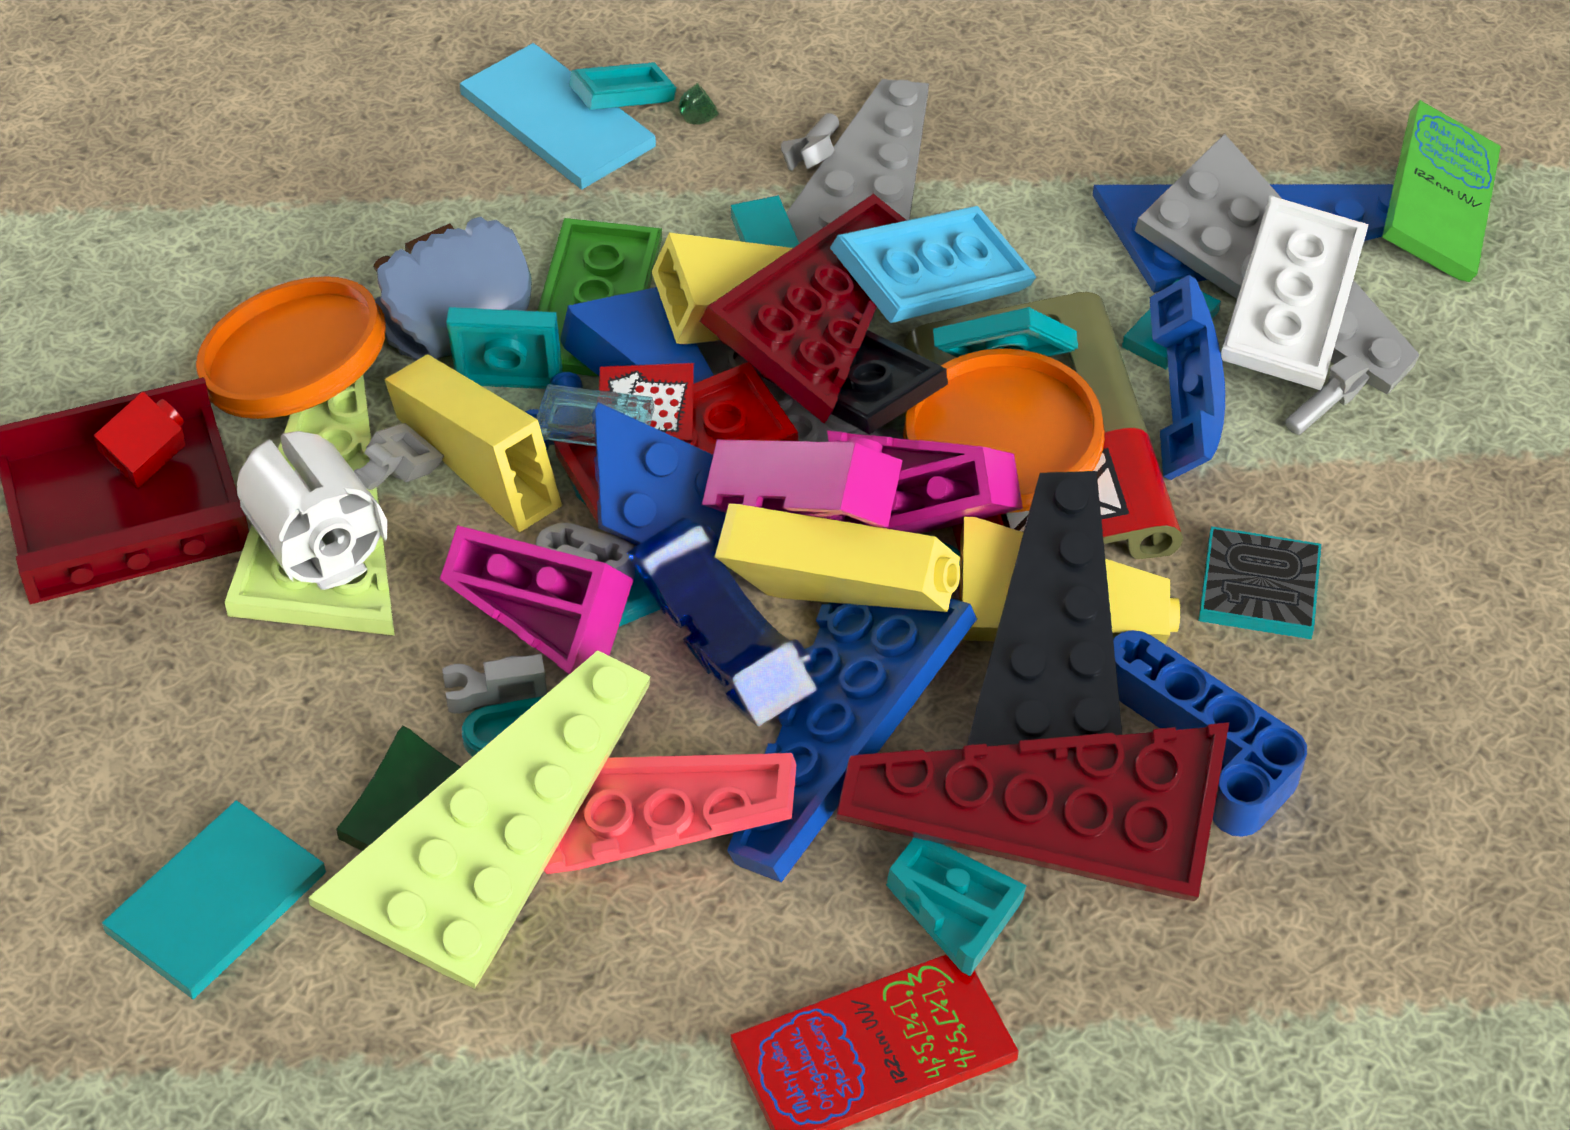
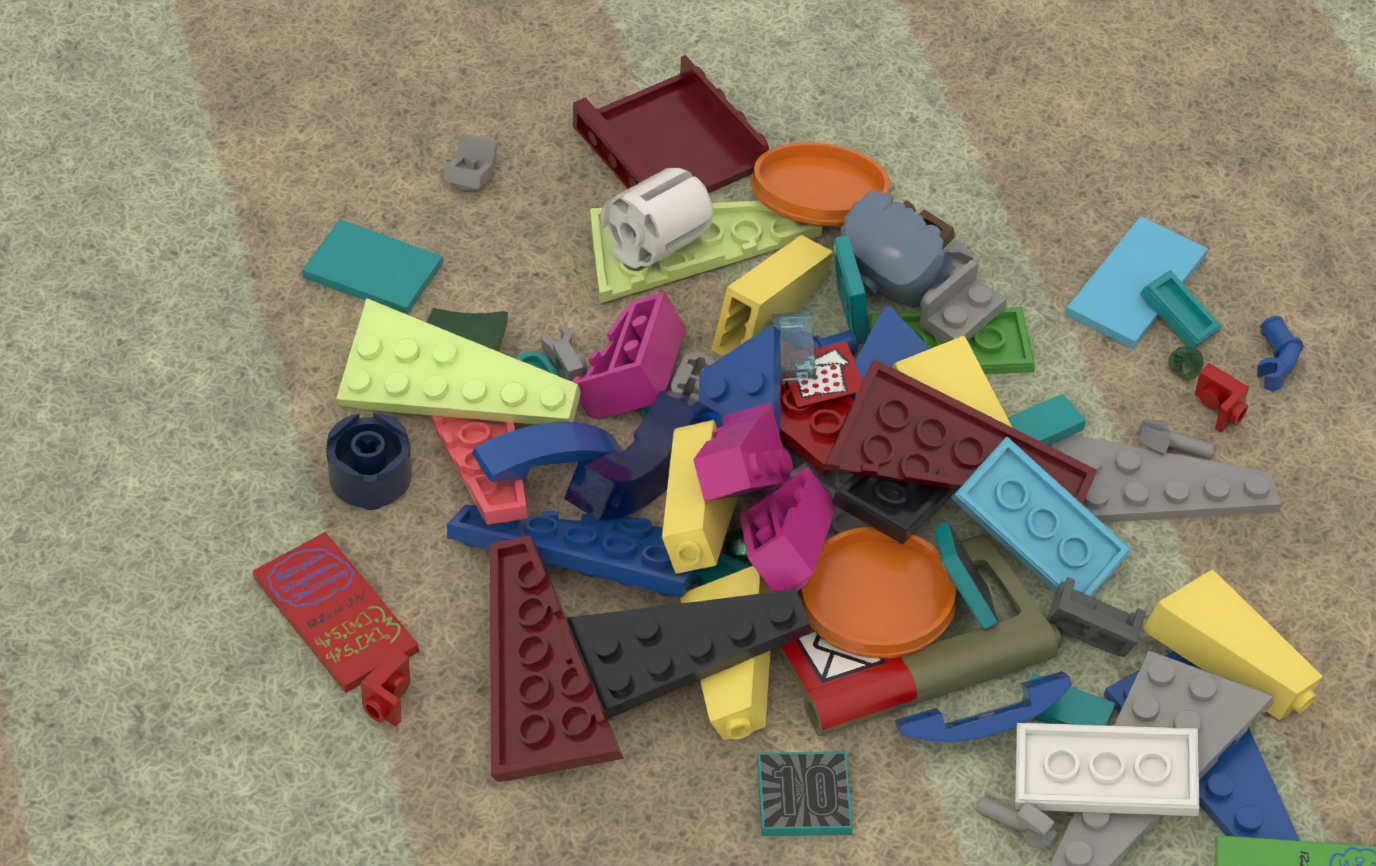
camera: 75 degrees right, 0 degrees up
(64, 731) = (473, 162): none -> light grey bracket
(141, 438) = (702, 128): red brick -> none
(398, 453) = (739, 257): light grey plate -> none
(562, 264) = (960, 305): none -> light grey bracket
(627, 947) = (369, 460): none -> dark blue brick
(695, 724) = (515, 452): none -> blue slope
(709, 22) = (1286, 353): none -> blue piece
(764, 81) = (1224, 393): none -> red bracket
(954, 899) = (451, 633): teal wing -> none
(1033, 1000) = (385, 687): none -> red bracket
(1067, 261) = (1094, 620): none -> dark grey hinge
(1126, 158) = (1229, 639): none -> light yellow slope
(1260, 752) = (645, 758): blue beam -> none

